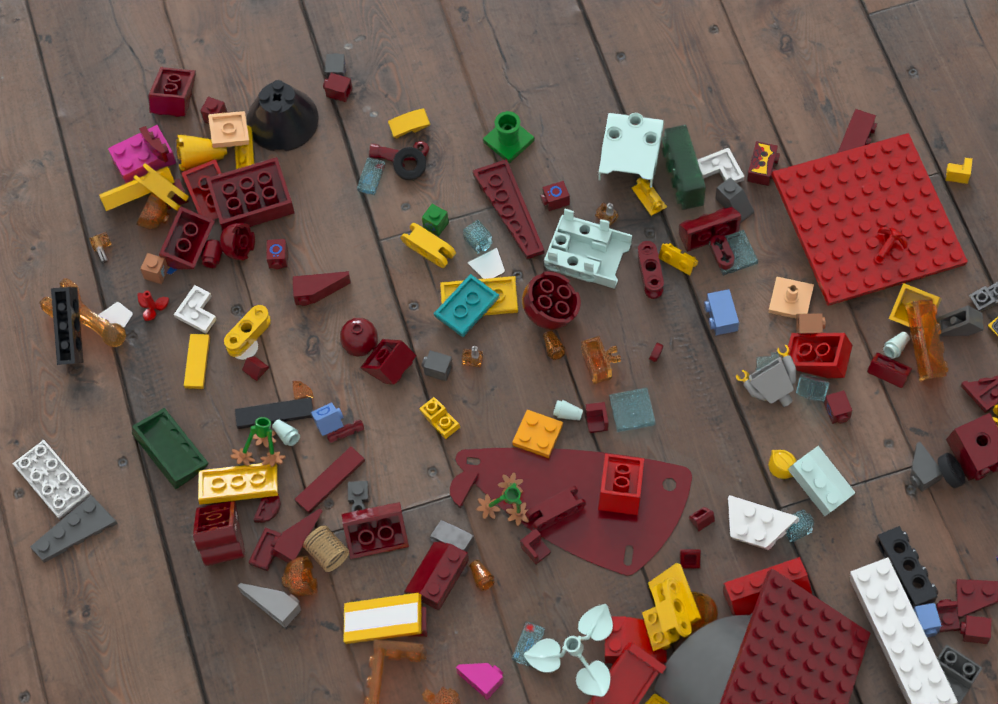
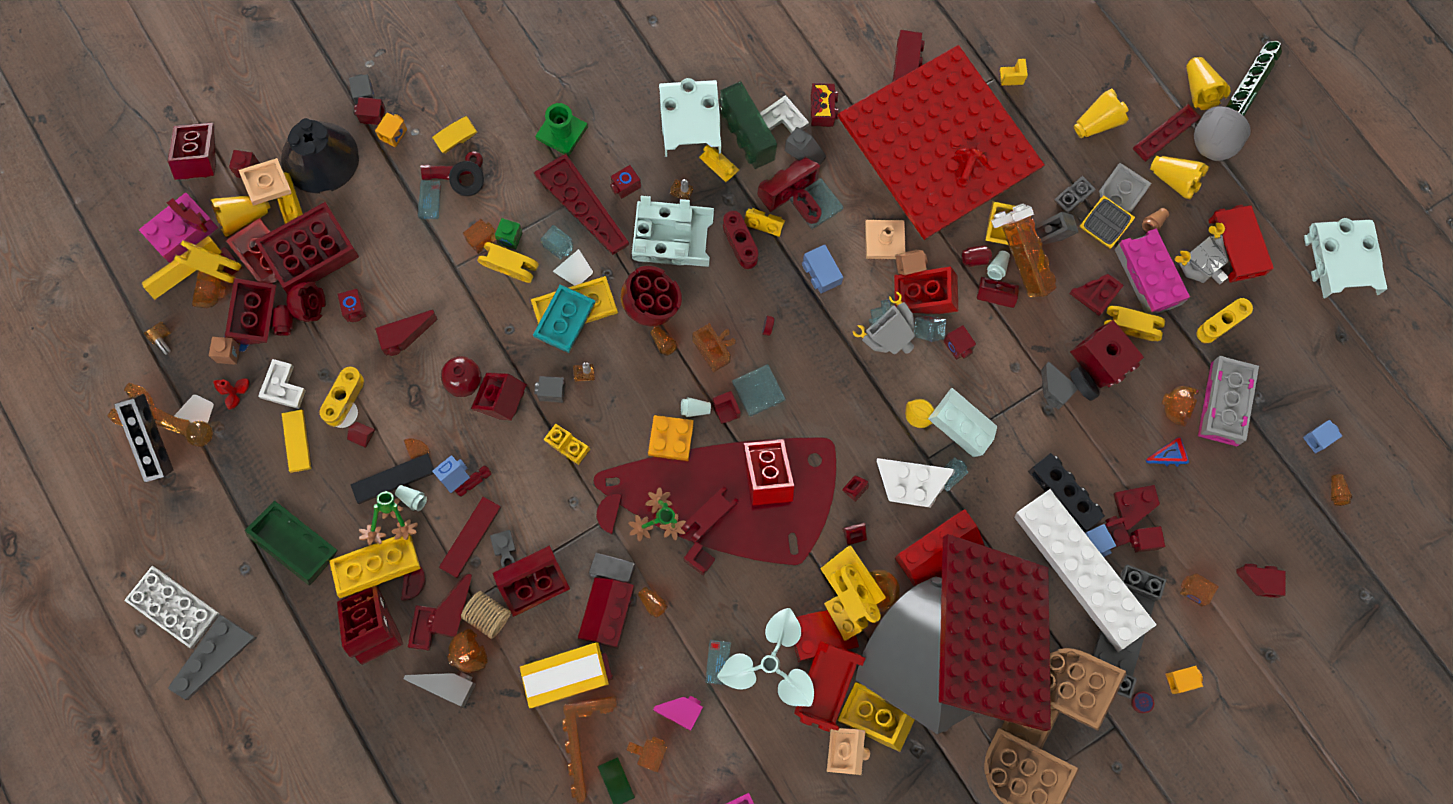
camera: 25 degrees left, 10 degrees up
(352, 107) = (391, 129): none -> light orange brick
(407, 215) = (479, 234): none -> clear orange brick
(876, 331) = (976, 256): none -> dark red brick
(922, 294) = (1019, 212): none -> white plate

